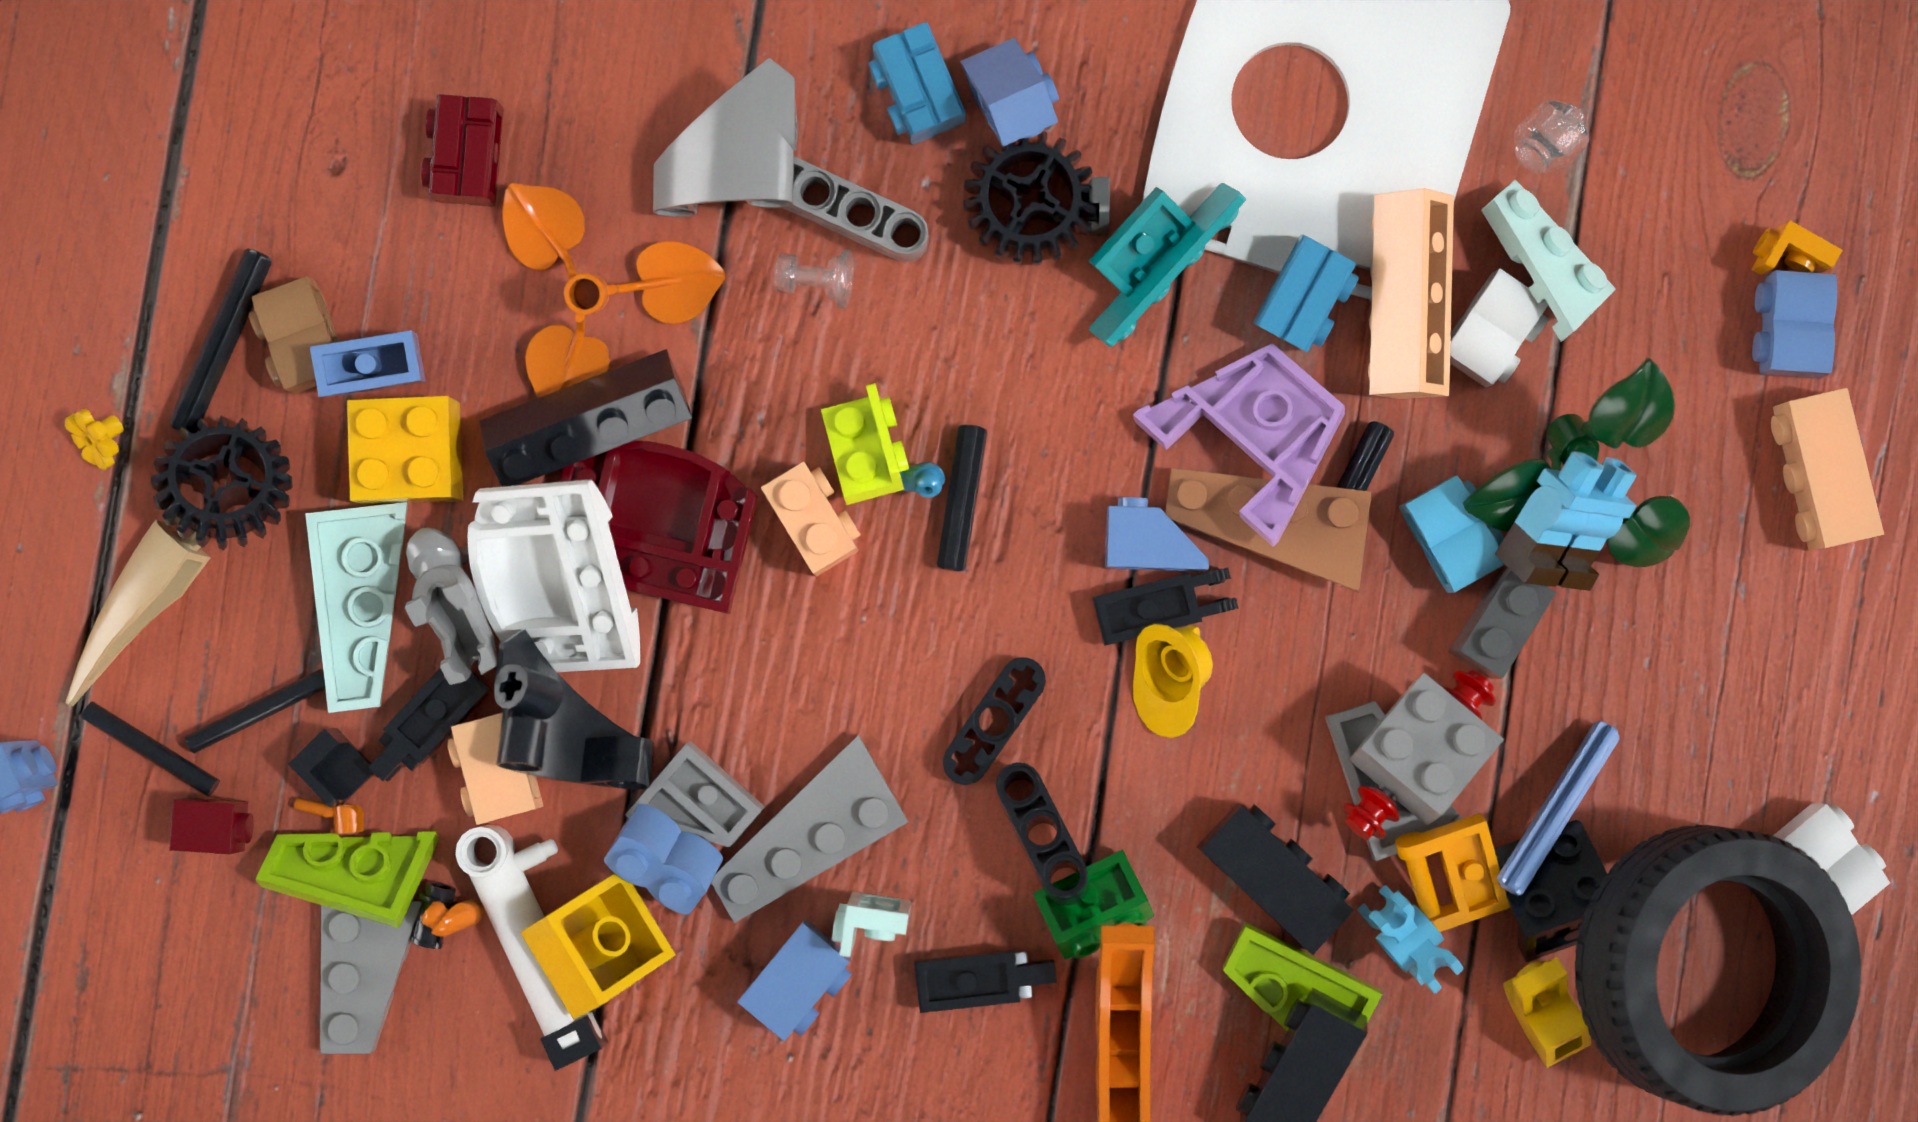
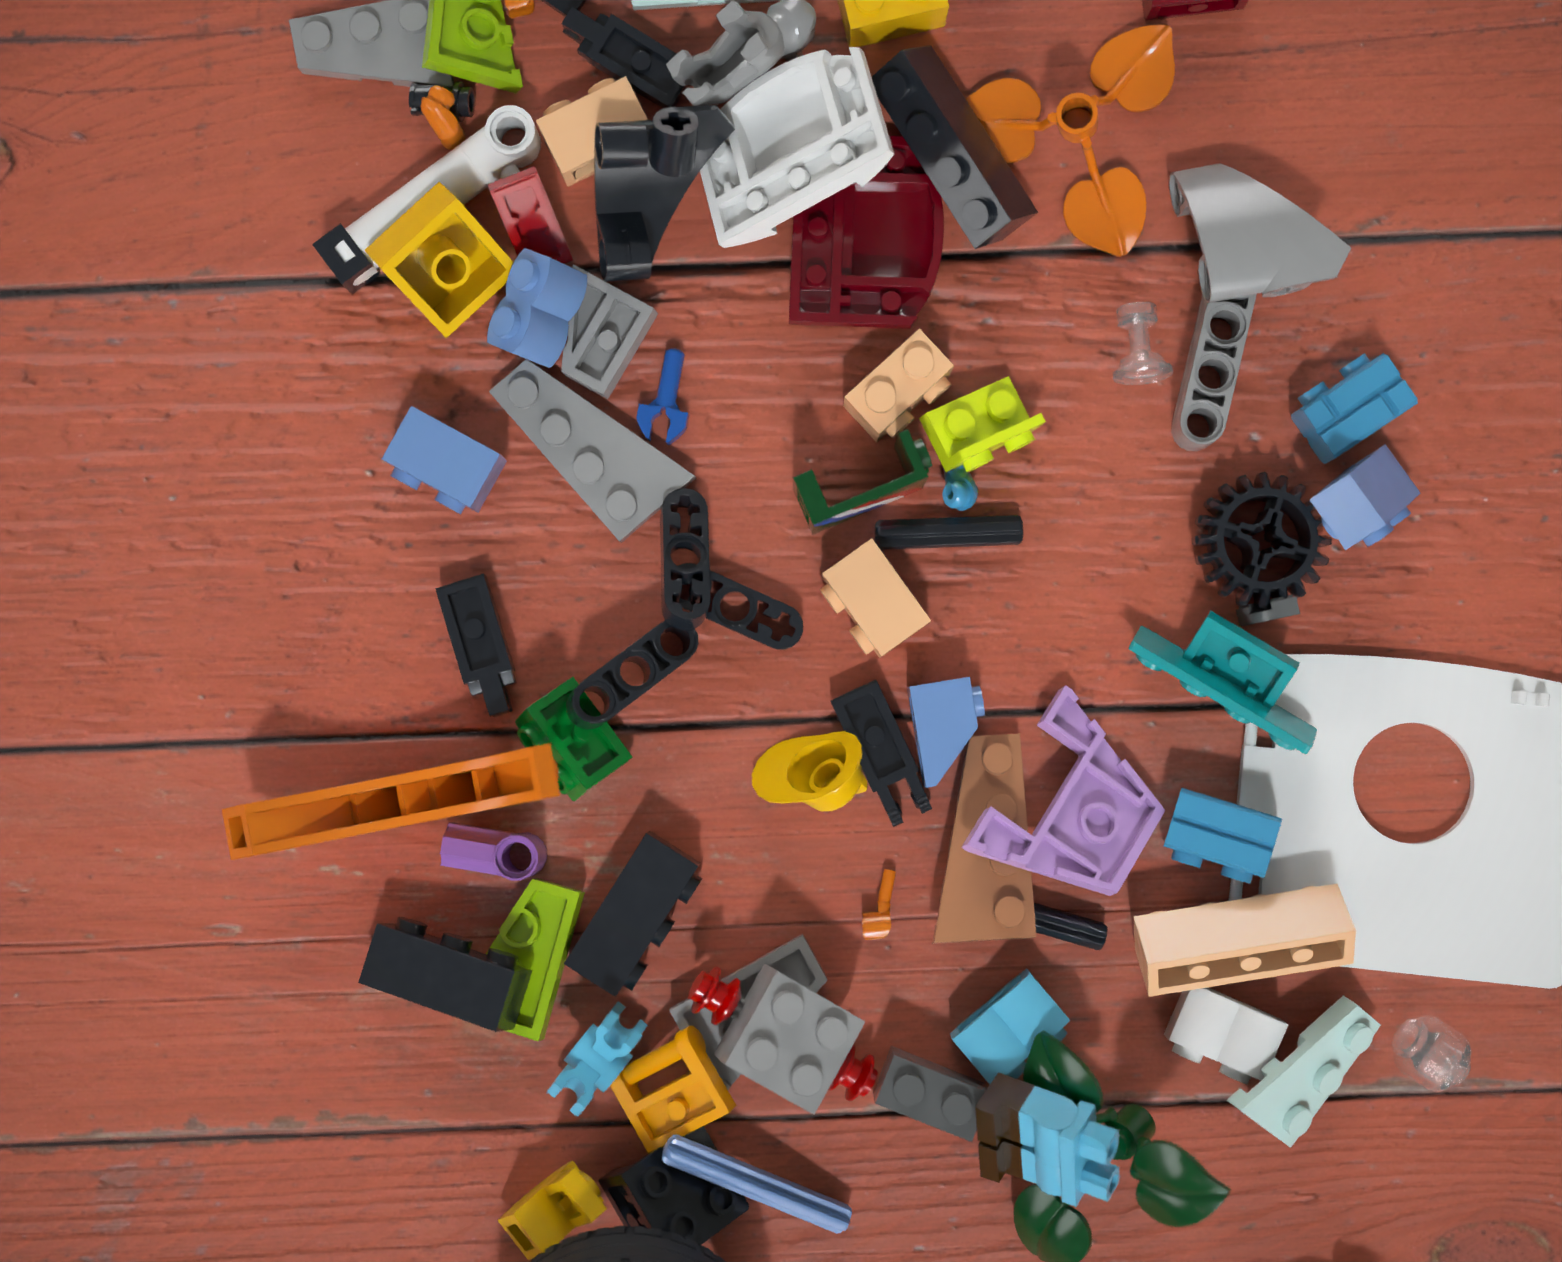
camera: 85 degrees right, 0 degrees up
(570, 849) = (529, 215): none -> red plate
(775, 749) = (666, 400): none -> blue bar
(877, 914) = (522, 521): light aqua bracket -> none
(891, 517) = (915, 463): none -> dark green panel
(924, 745) = (673, 576): none -> black beam
(1015, 582) = (874, 599): none -> light nougat brick
(1187, 1008) = (489, 851): none -> medium lavender piece
(1329, 641) = (878, 924): none -> orange hand

